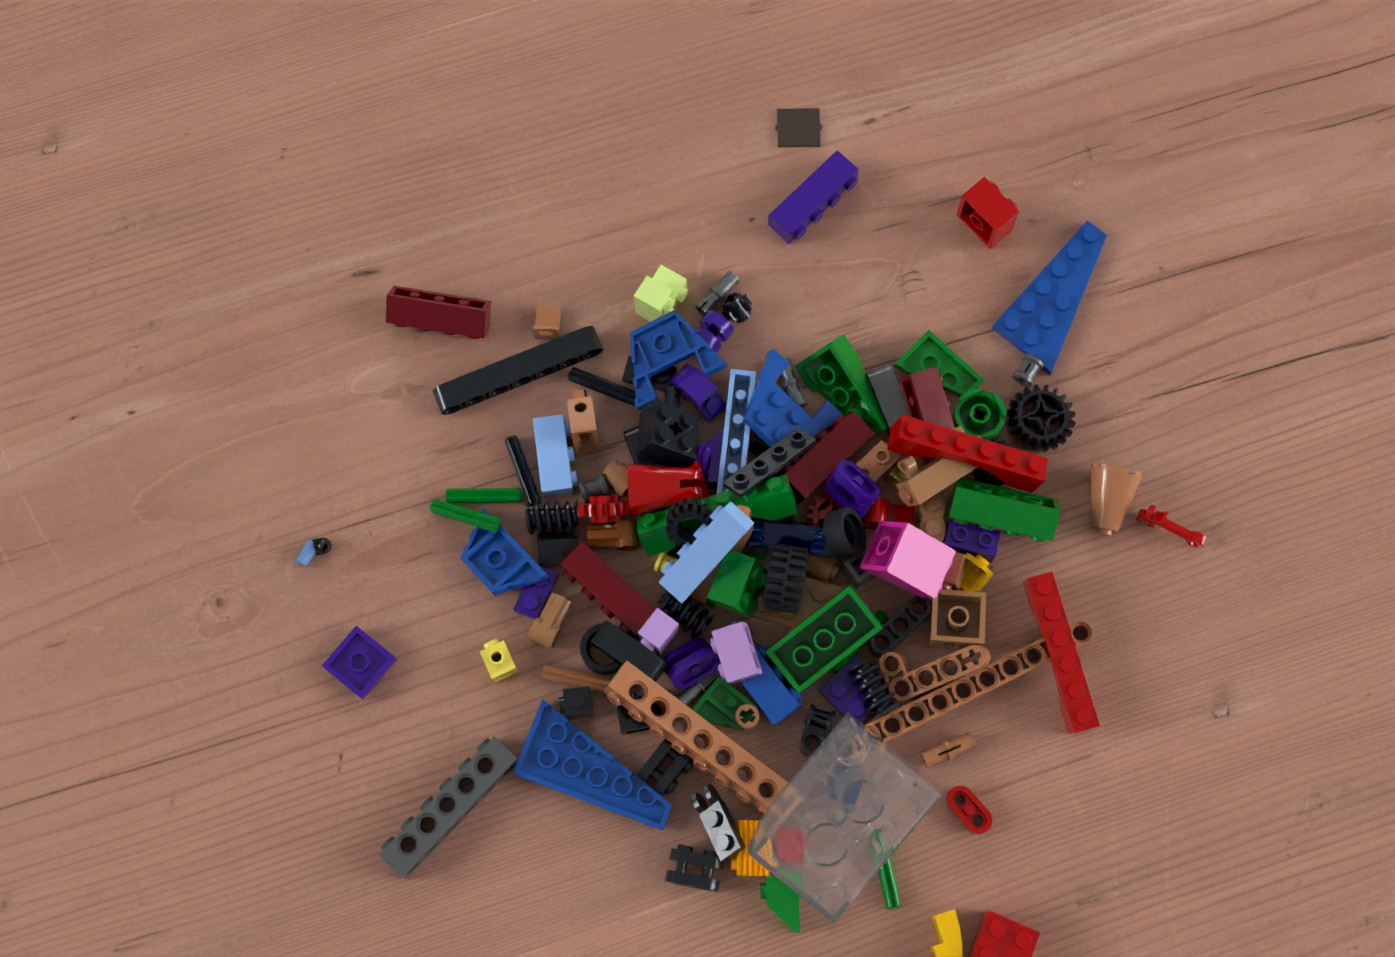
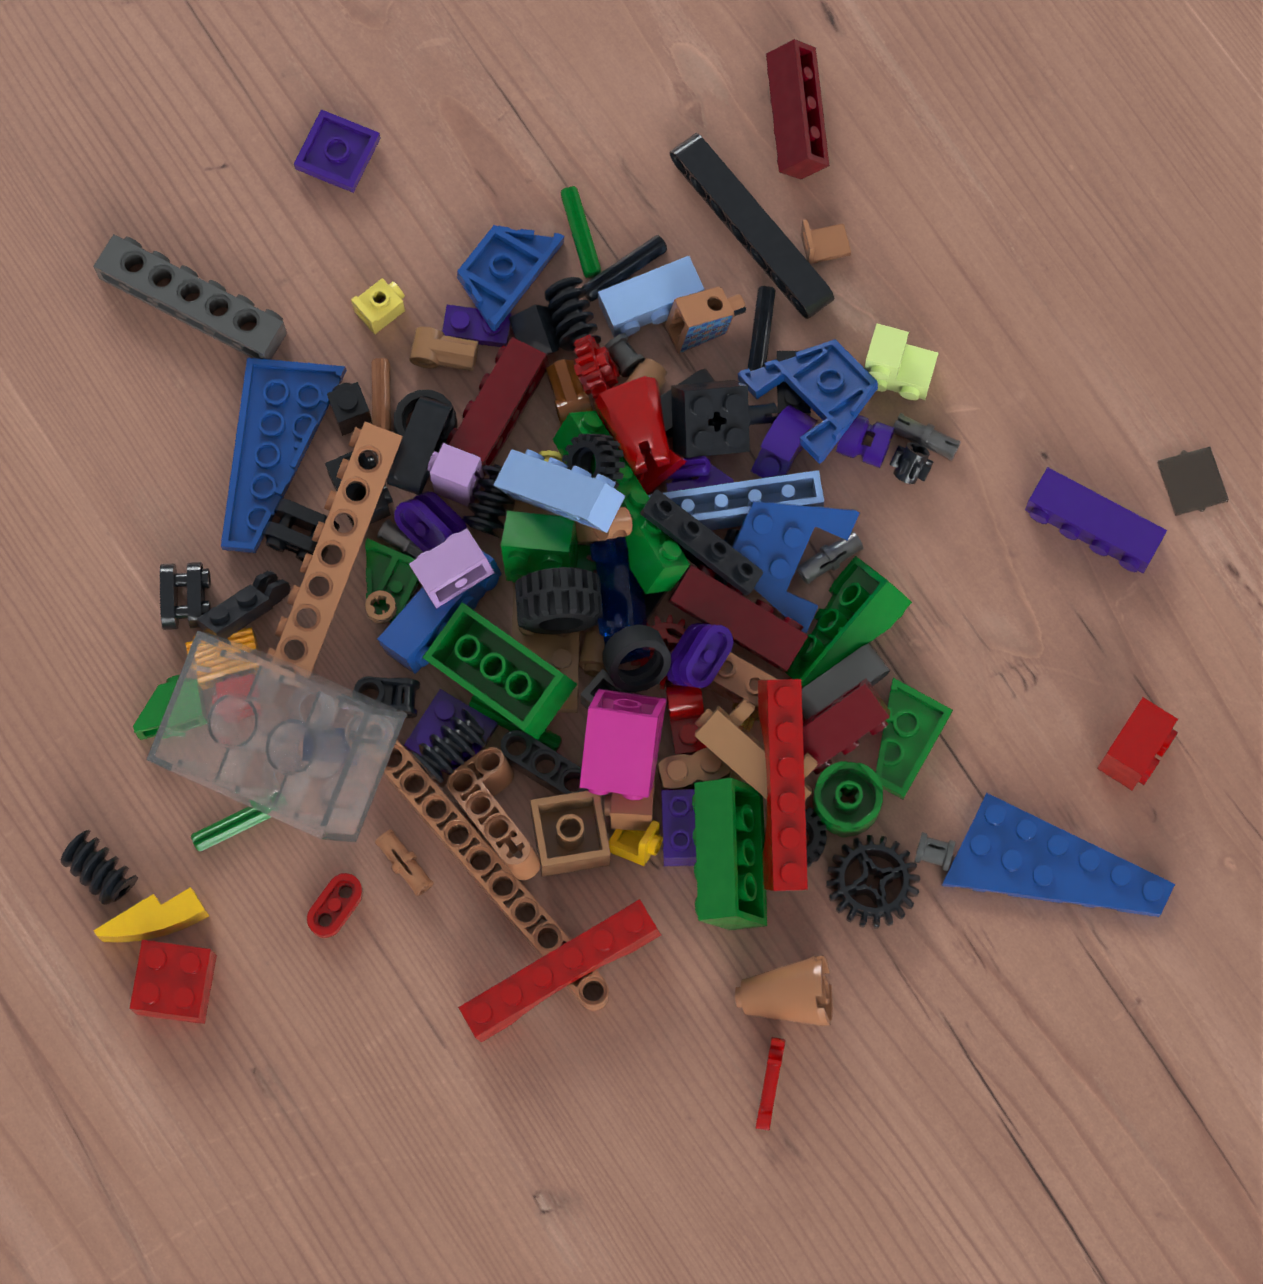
camera: 75 degrees right, 0 degrees up
(313, 548) = (461, 58): arm -> none
(465, 515) = (547, 215): green axle -> none

